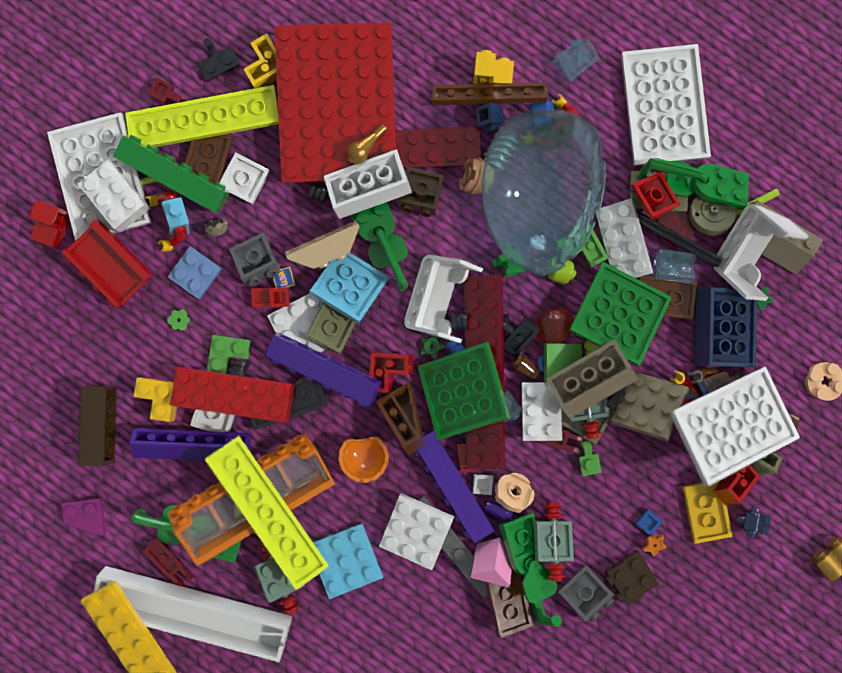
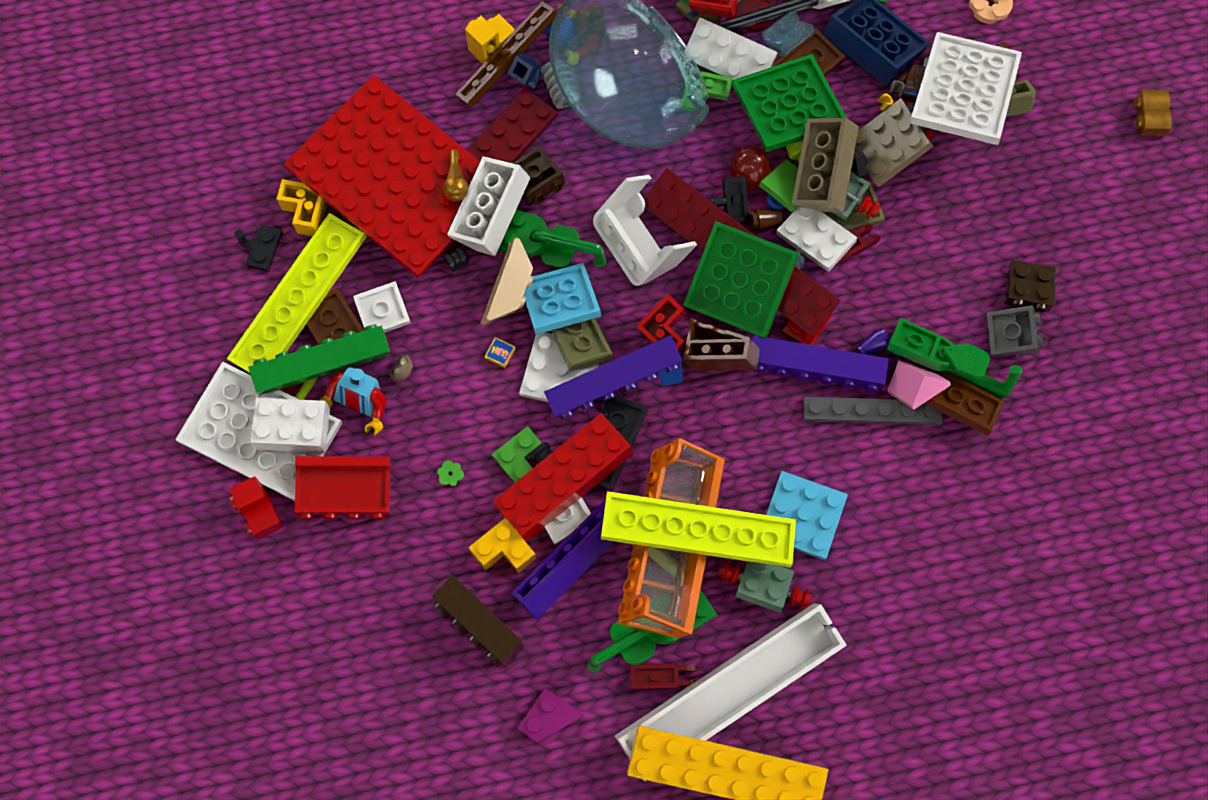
camera: 50 degrees left, 15 degrees down
(164, 91) = (241, 311): dark red plate -> none
(194, 272) = (422, 423): medium blue plate -> none
(255, 260) = (461, 359): dark grey plate -> none
(270, 297) = (506, 375): red slope -> none
(363, 459) = (725, 413): orange cylinder -> none
(416, 531) = (831, 427): white plate -> none
(432, 351) = (675, 287): green plate -> none
(454, 347) = (693, 259): blue wheel -> none
(459, 321) = (675, 236): black wheel -> none
(472, 176) = (563, 122): nougat cone -> none
(482, 484) = (837, 339): white tile -> none
(509, 269) = (664, 157): green piece -> none
(510, 501) = (878, 316): light nougat plate -> none
(553, 541) = (941, 319): sand green plate -> none
(563, 275) = (711, 125): lime head -> none
(589, 462) = (896, 237): bright green plate -> none
(648, 522) = (992, 233): blue tile -> none
(650, 547) = (1016, 242): orange plate -> none
(706, 513) = (1023, 180): yellow tile -> none
(736, 485) = (1019, 132): red brick -> none
(755, 522) = (1066, 148): dark blue piece -> none

